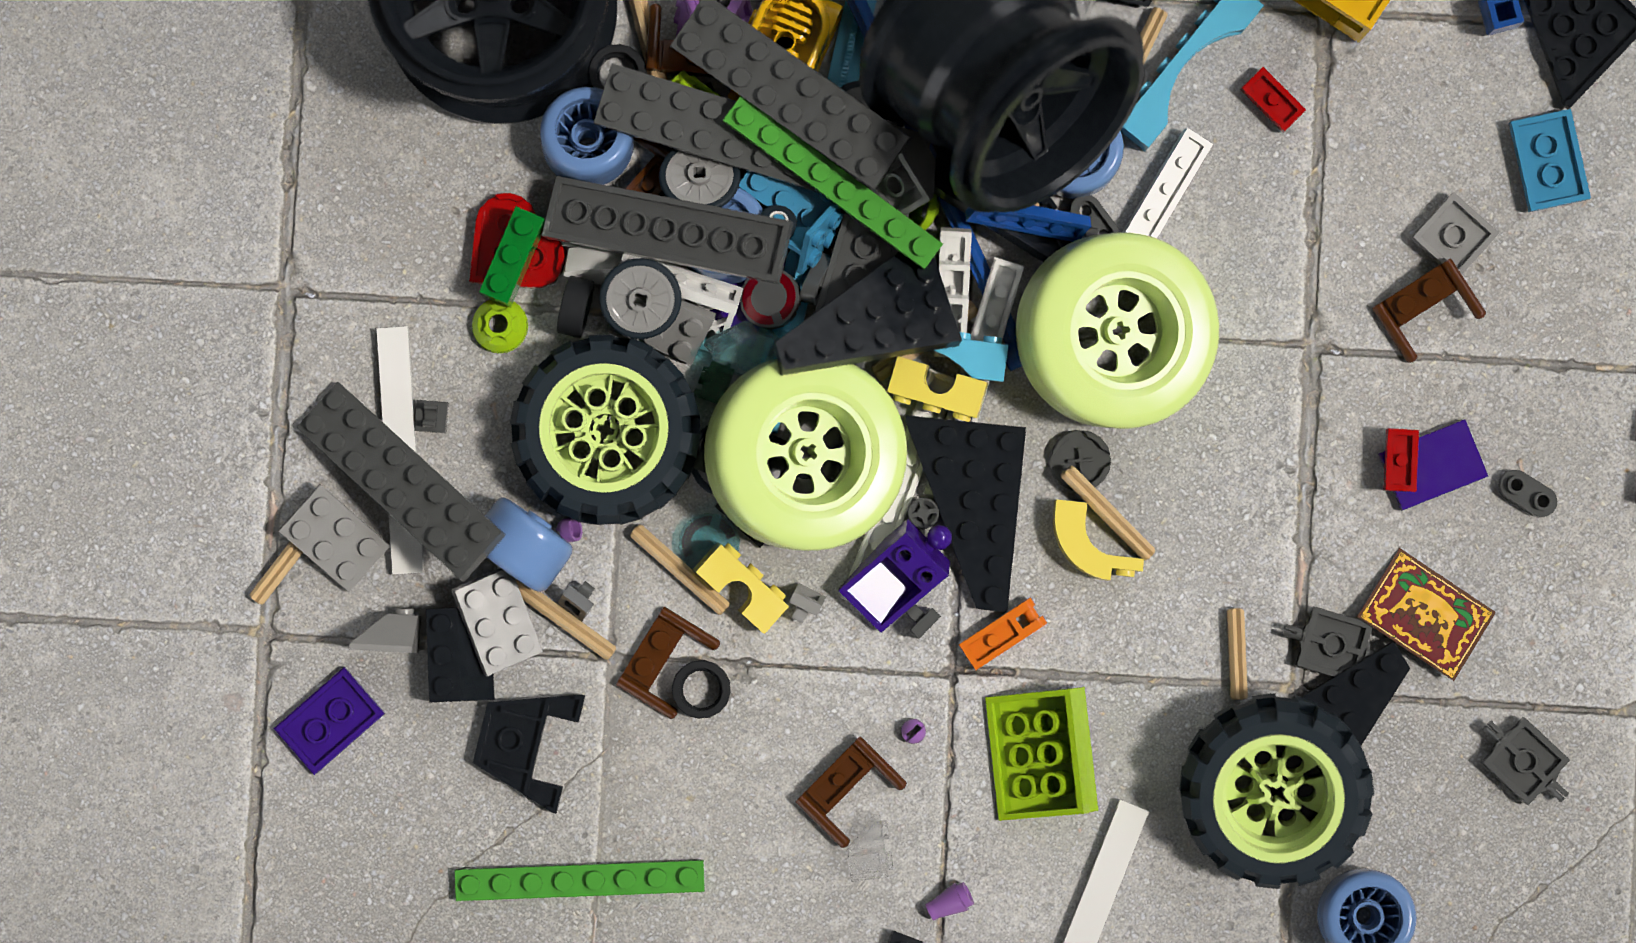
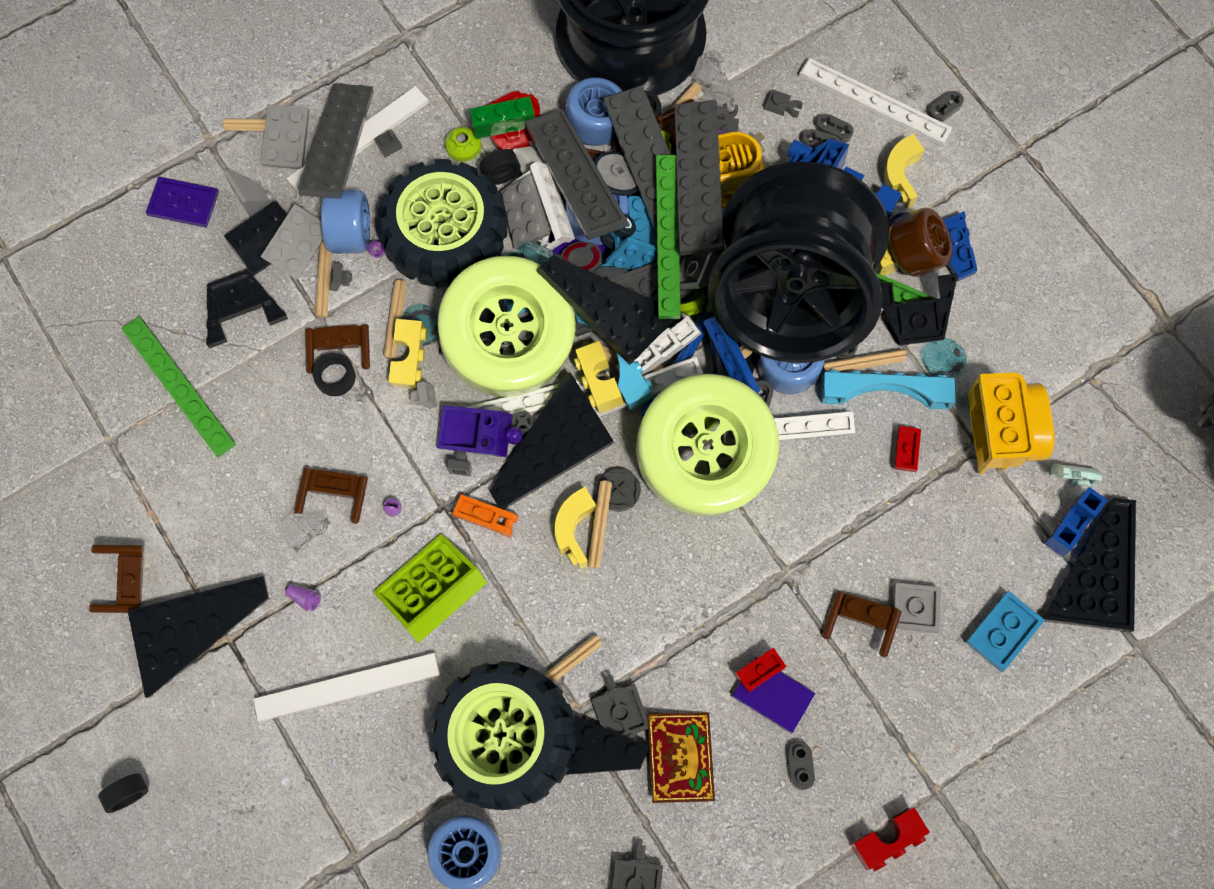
camera: 60 degrees right, 15 degrees down
(645, 278) = (533, 195): light grey wheel -> none

